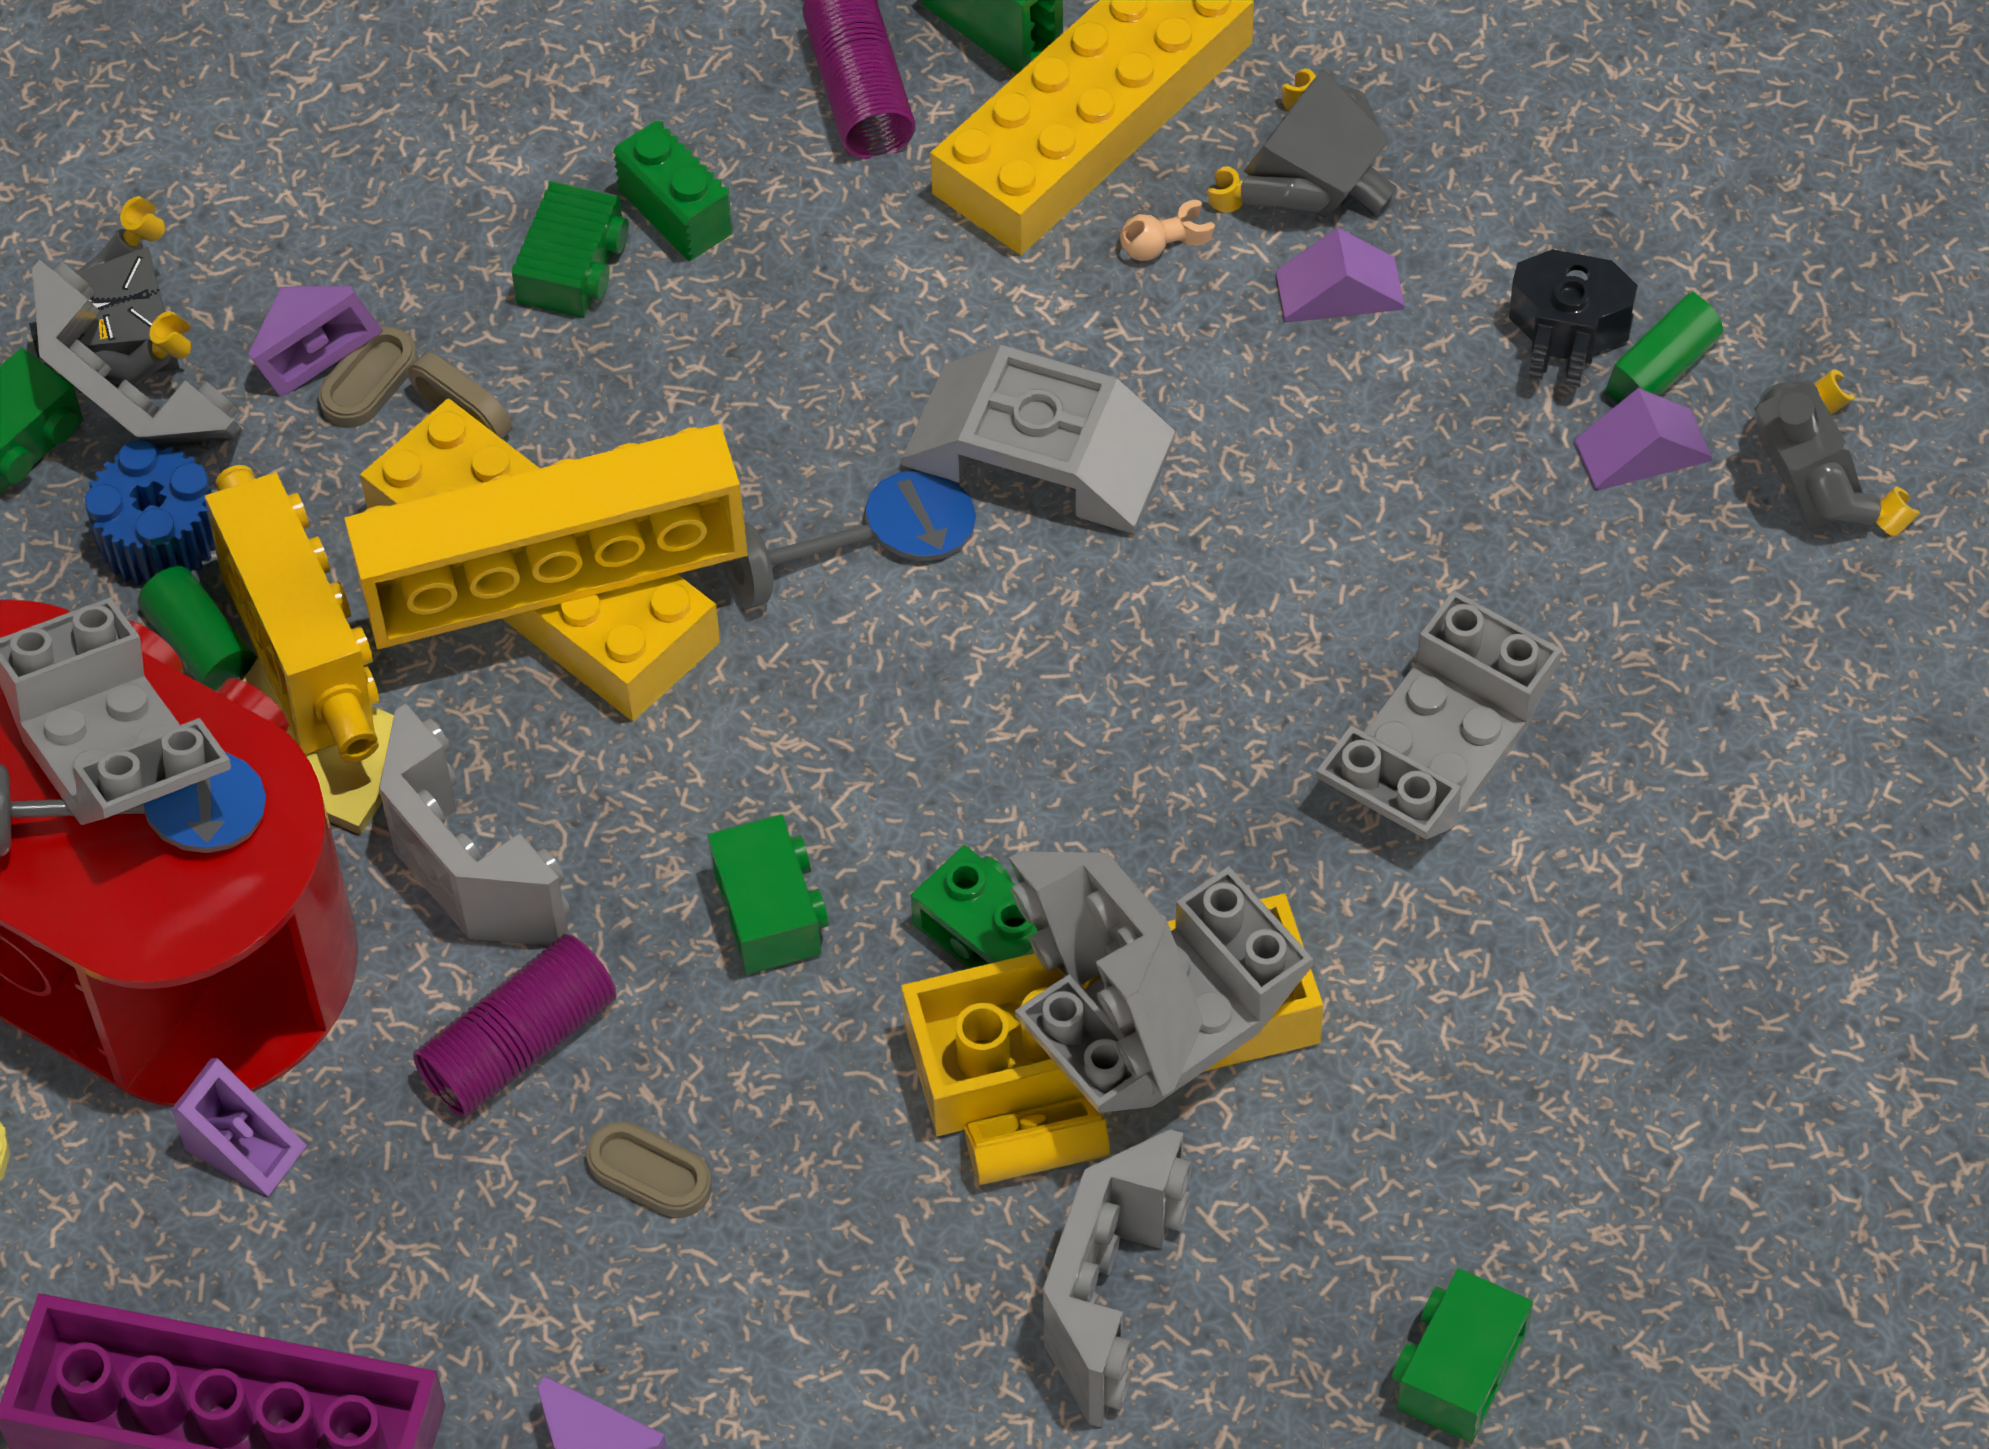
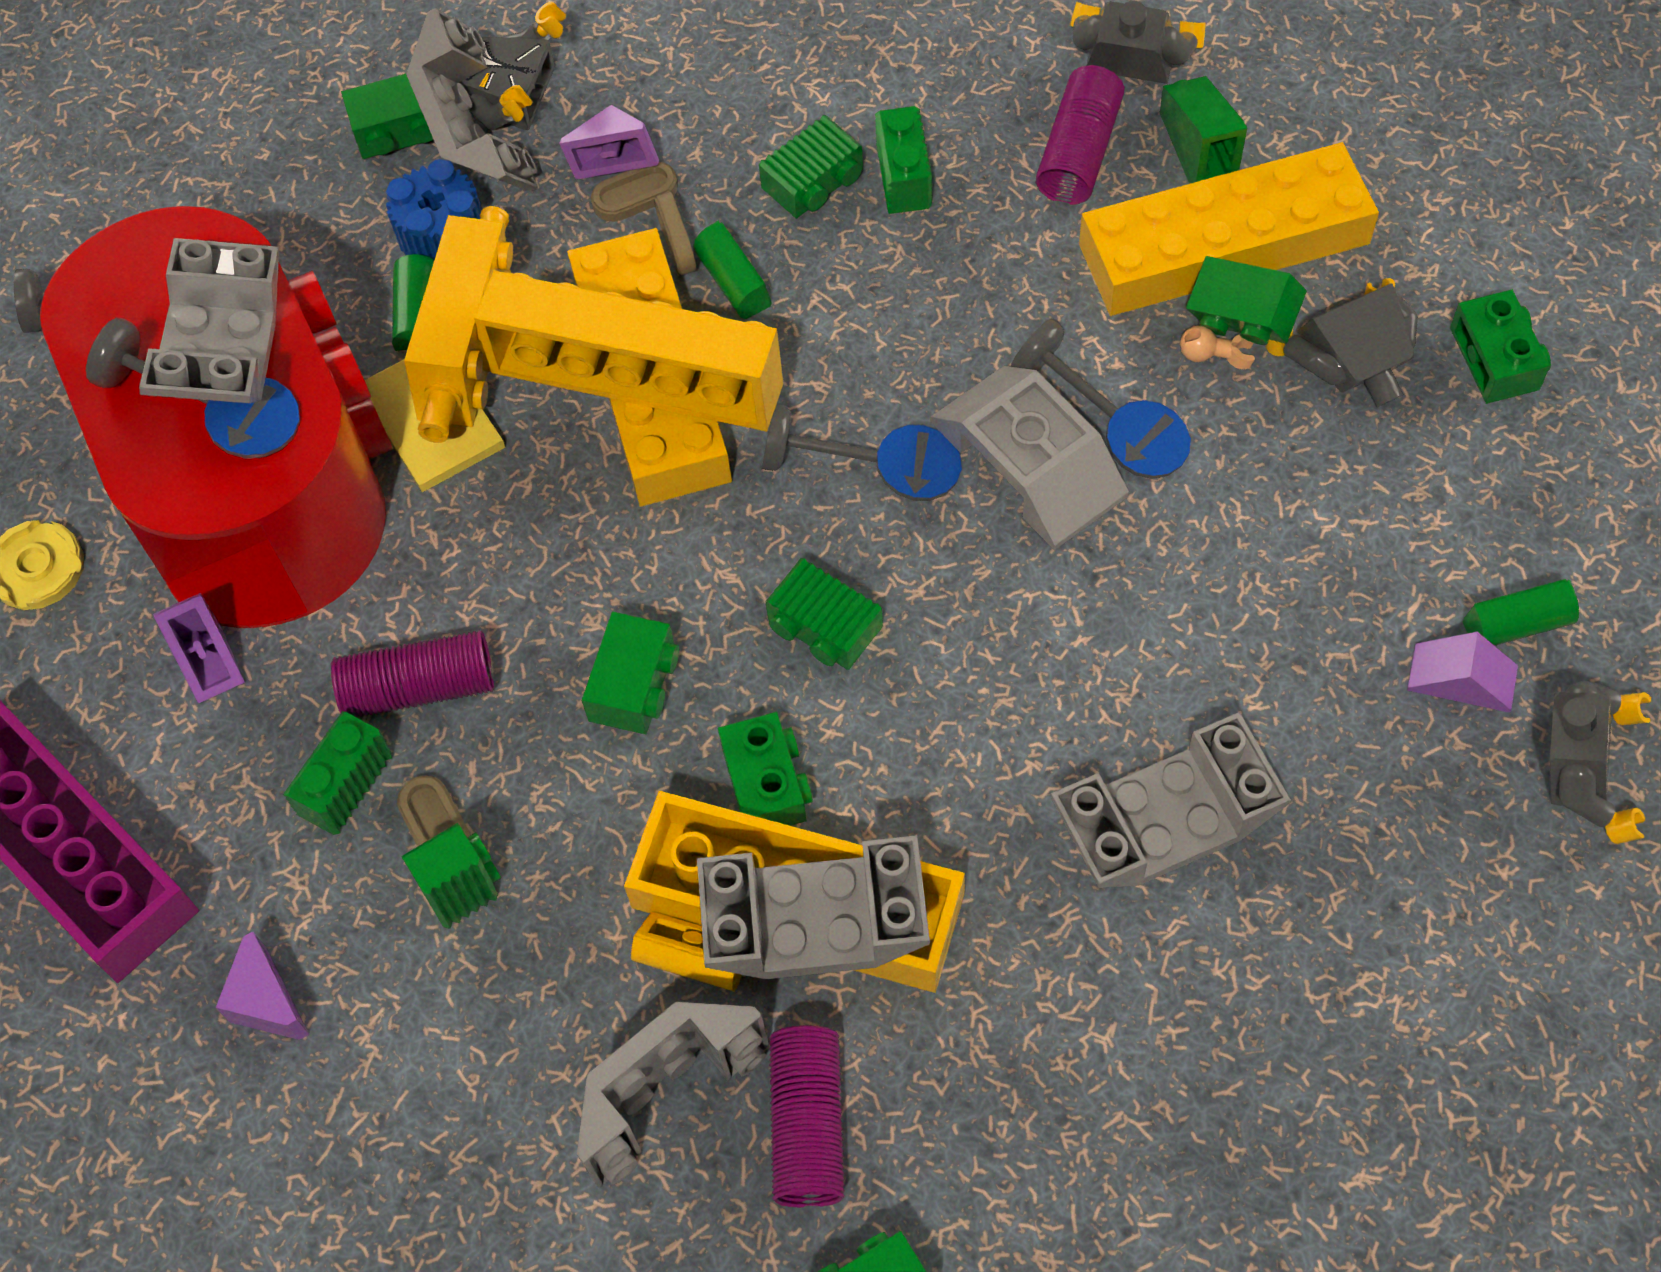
camera: 35 degrees right, 5 degrees up
(493, 898) = (448, 481): light grey slope -> none
(508, 1171) = (338, 773): none -> green brick
(559, 407) = (732, 270): none -> green brick
(728, 1197) = (453, 874): none -> green brick
(934, 724) = (823, 615): none -> green brick
(1102, 924) = (778, 903): light grey slope -> none
(1149, 358) = (1140, 435): none -> piece
(1173, 163) = (1246, 300): none -> green brick
(1291, 1238) = (806, 1133): none -> magenta piece
(1338, 279) = (1318, 441): medium lavender slope -> none
(1465, 87) = (1500, 346): none -> green brick
(1569, 314) = (1466, 550): black hinge -> none

